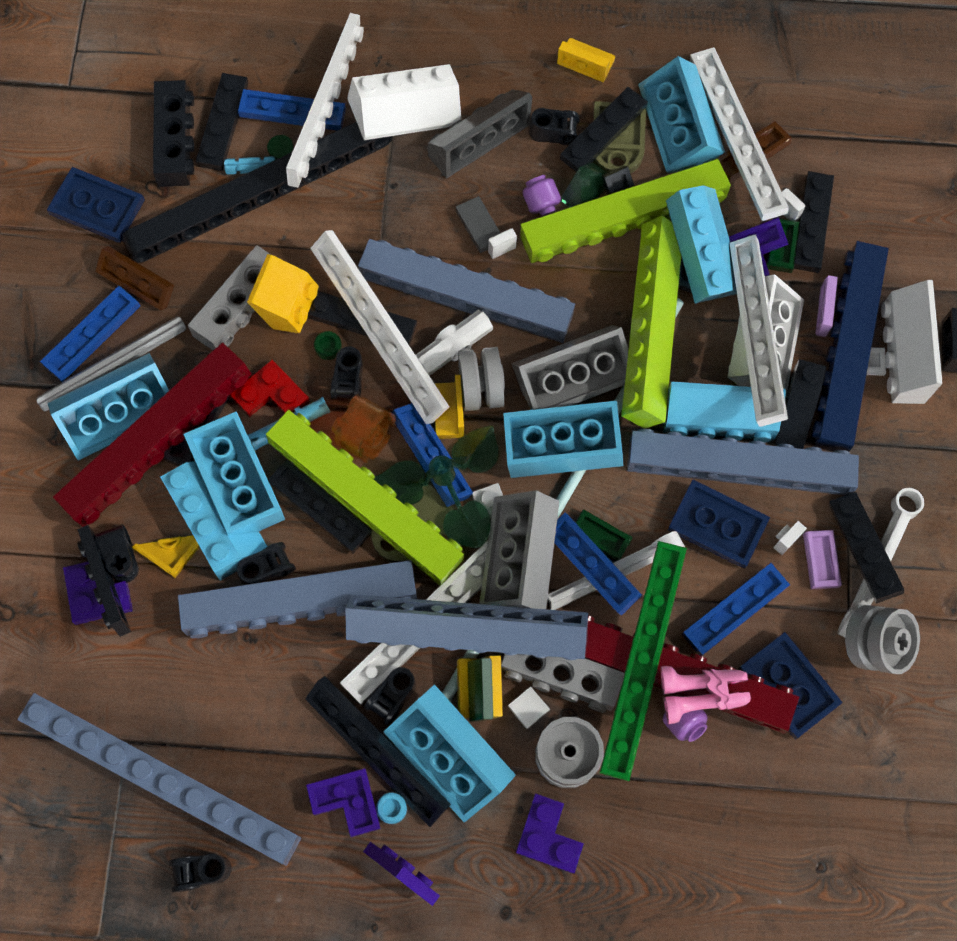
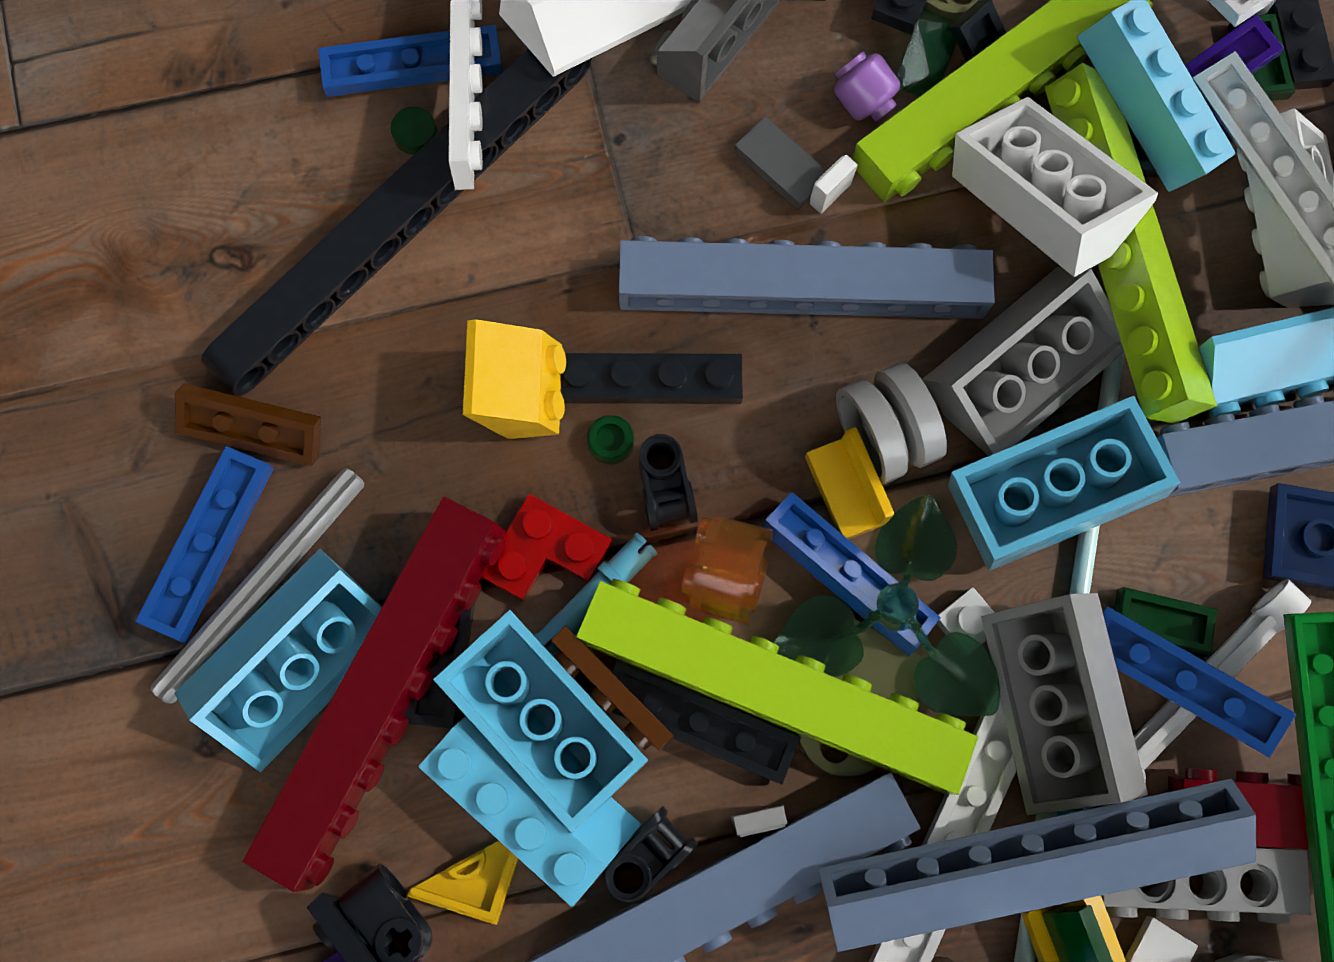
camera: 20 degrees left, 5 degrees up
(95, 204) = (136, 317): dark blue plate -> none
(169, 97) = (196, 98): black brick -> none
(221, 122) = (300, 114): black plate -> none
(222, 305) = (412, 427): light grey brick -> none
(245, 165) = (368, 173): medium azure axle -> none
(275, 471) = (609, 691): none -> reddish brown plate
(329, 564) = (759, 821): none -> light grey tile
(379, 327) = (692, 386): white plate -> none
(454, 339) = (815, 373): white piece -> none
(617, 275) = (1051, 184): none -> white slope

